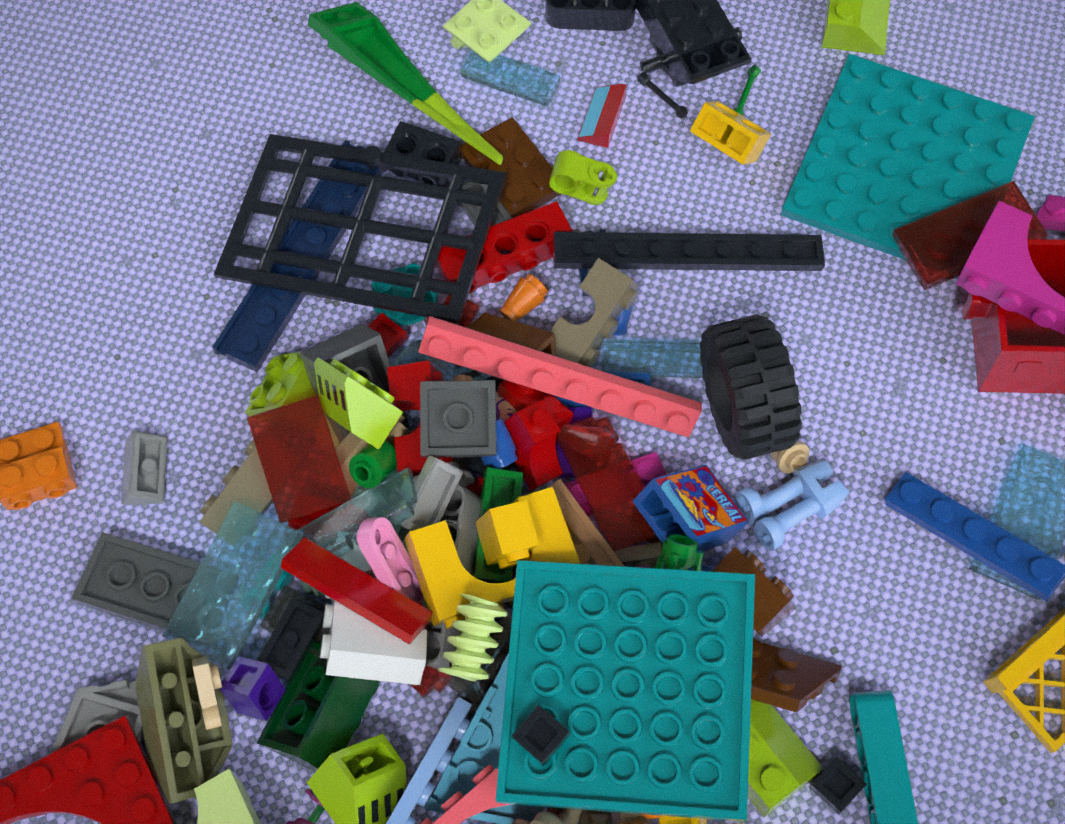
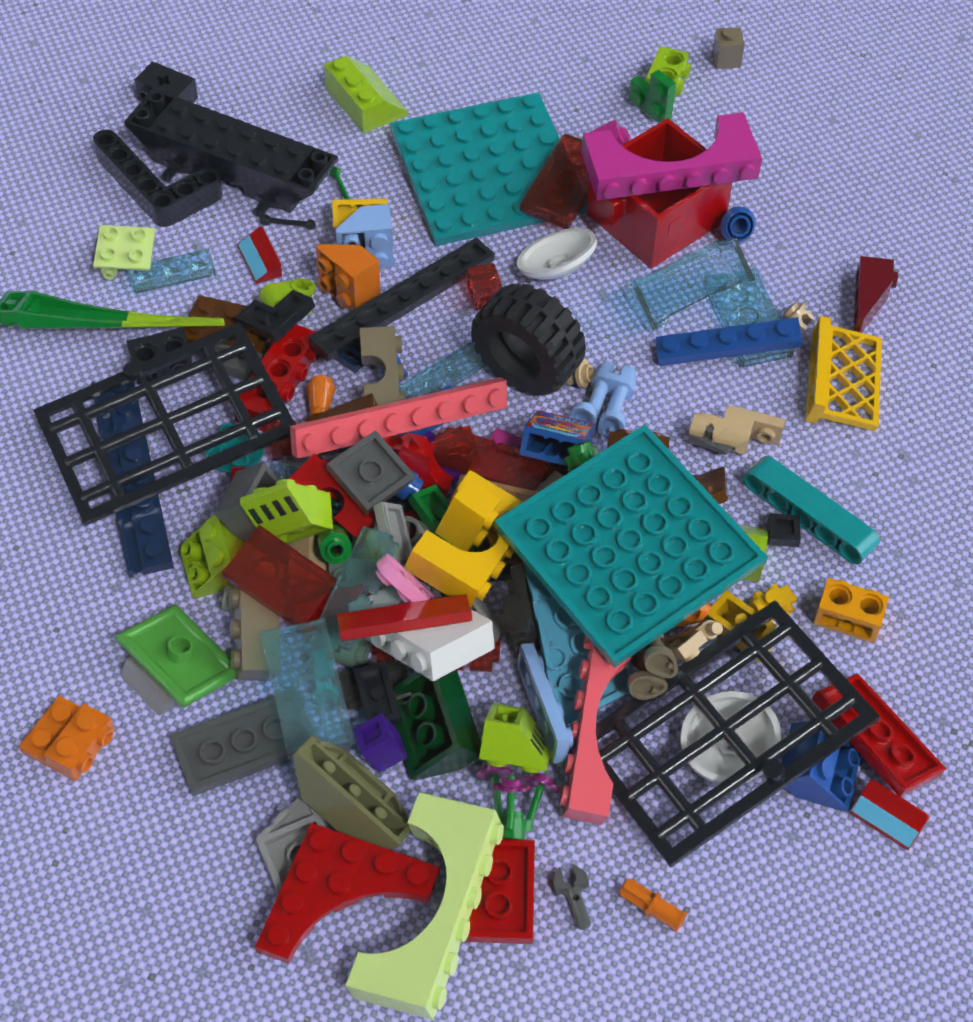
camera: 45 degrees left, 10 degrees down
(177, 460) = (178, 655): none -> bright green piece
(207, 680) = (354, 756): tan plate -> none
(473, 639) = (510, 583): yellowish green piece -> none
(541, 194) = (278, 320): none -> black plate
(541, 735) = (609, 600): black plate -> none
(655, 192) = (348, 274): none -> orange slope
(707, 165) = (372, 230): none -> light blue slope
(781, 293) = (482, 284): none -> clear red brick
(883, 309) = (557, 254): none -> white dish
(887, 637) = (734, 430): none -> tan plate
(981, 434) = (686, 281): none -> clear light blue windscreen

